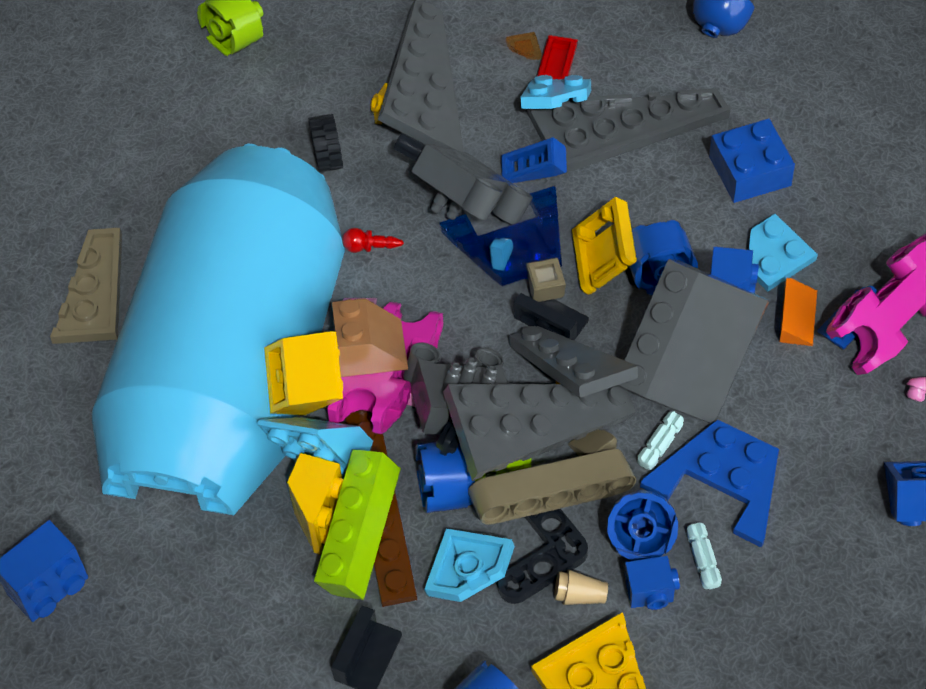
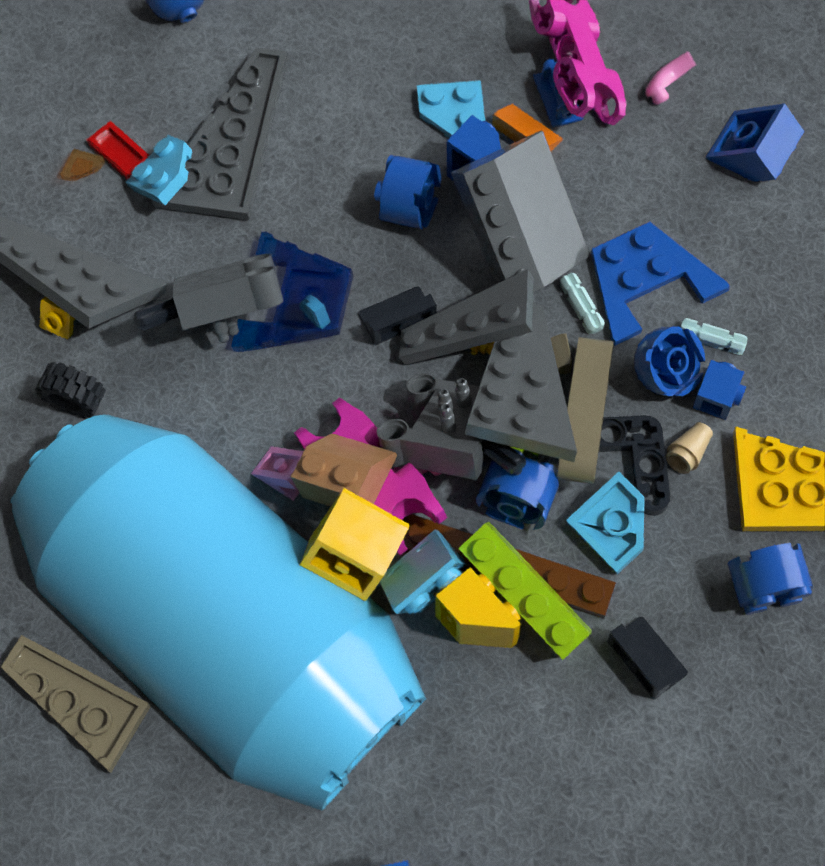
camera: 60 degrees left, 10 degrees up
(356, 240) = (199, 425): red bar -> none
(546, 280) = (362, 293): dark tan slope -> none
(552, 161) = (227, 204): blue slope -> none
(610, 252) = (371, 229): yellow container -> none
(751, 160) = (353, 67): blue brick -> none

